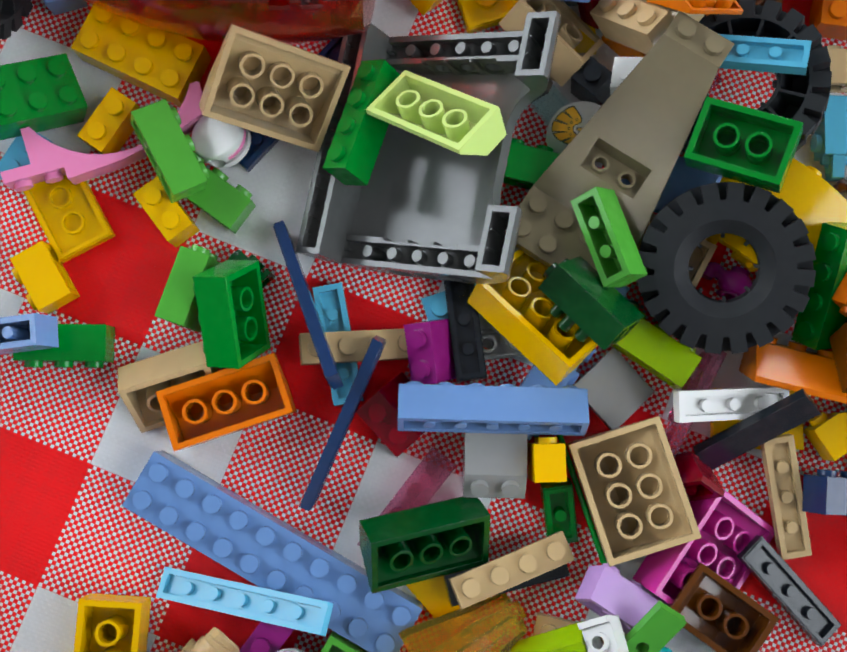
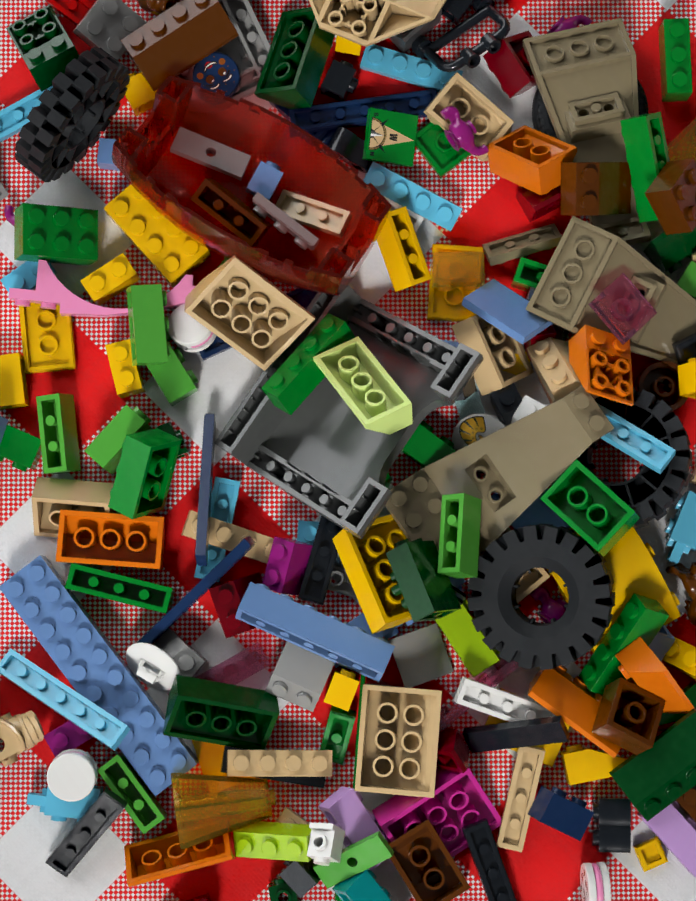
camera: 25 degrees right, 0 degrees up
(121, 310) = (58, 433): none -> bright green brick
(257, 451) = (120, 588): none -> green brick
(328, 521) = (152, 665): none -> white shield
(352, 496) = (183, 654): none -> light grey slope

